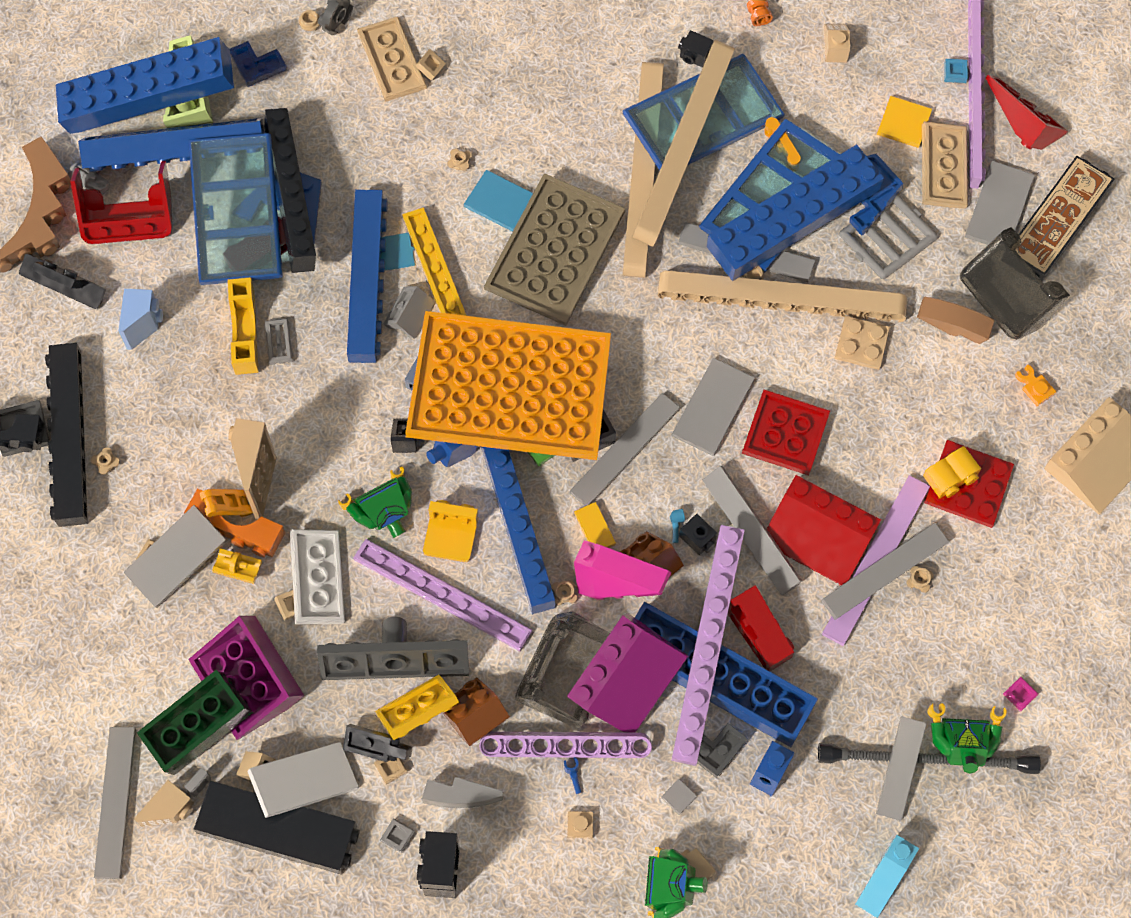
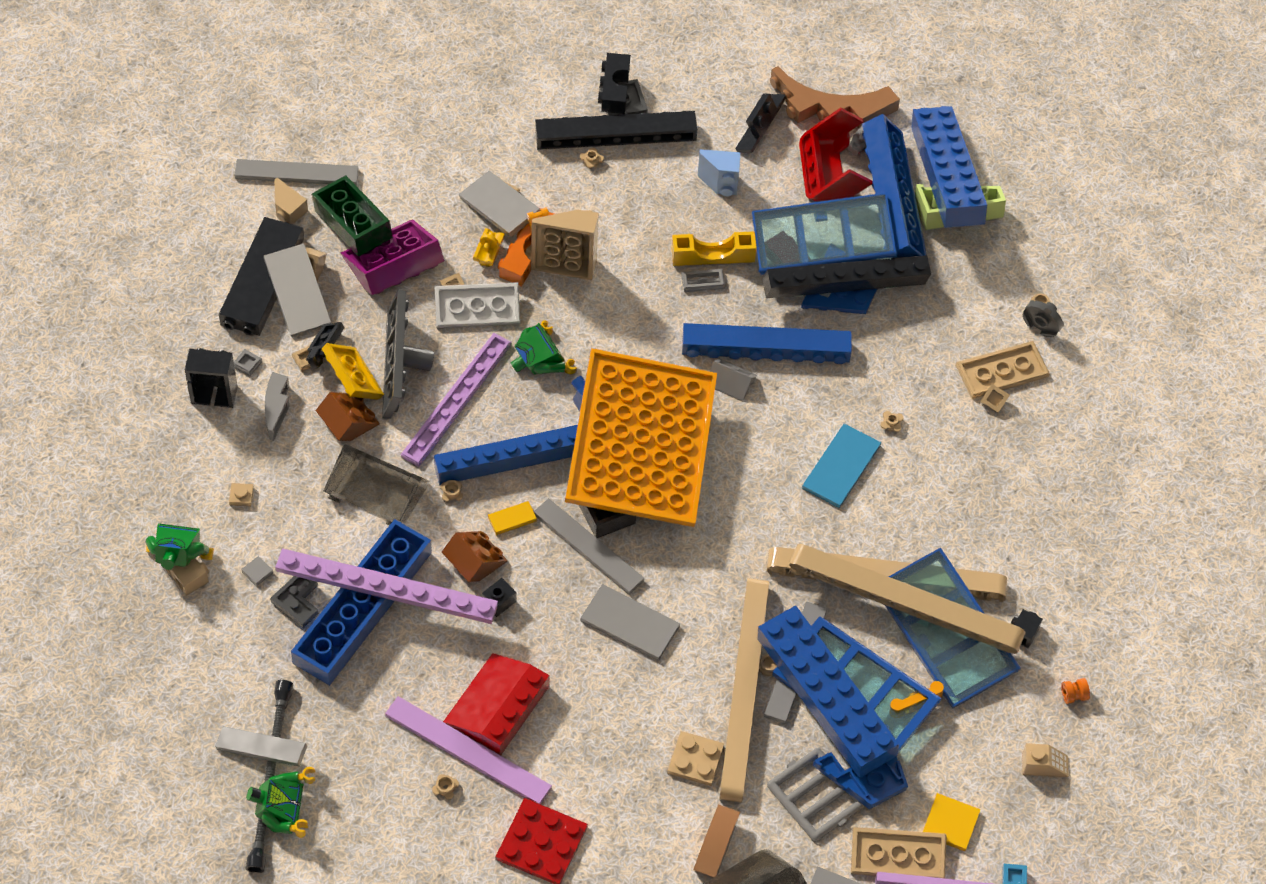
camera: 90 degrees right, 10 degrees down
(198, 782) = (306, 222): light grey tile -> none
(254, 68) = (985, 260): clear blue plate -> none
(398, 252) = (794, 372): dark azure piece -> none
(433, 262) = (774, 398): yellow plate -> none
(450, 531) = (512, 404): yellow bracket -> none
(554, 249) = (794, 493): dark tan plate -> none
(573, 774) = (291, 493): blue hand -> none
(576, 738) = (315, 491): lavender beam -> none
(609, 573) = (461, 518): dark pink wedge -> none
(627, 675) = (364, 522): magenta slope -> none
(676, 517) = (518, 583): dark azure hand -> none
(755, 533) = (502, 644): light grey tile -> none
(760, 629) = (403, 640): red wedge -> none
(772, 768) = (271, 639): blue torso -> none
(786, 432) = (600, 680): red plate -> none
(884, 571) = (453, 752): light grey tile -> none
(887, 876) = (168, 729): medium azure slope -> none
(952, 472) = (546, 815): yellow brick -> none
(1020, 694) = (325, 864): dark pink tile -> none

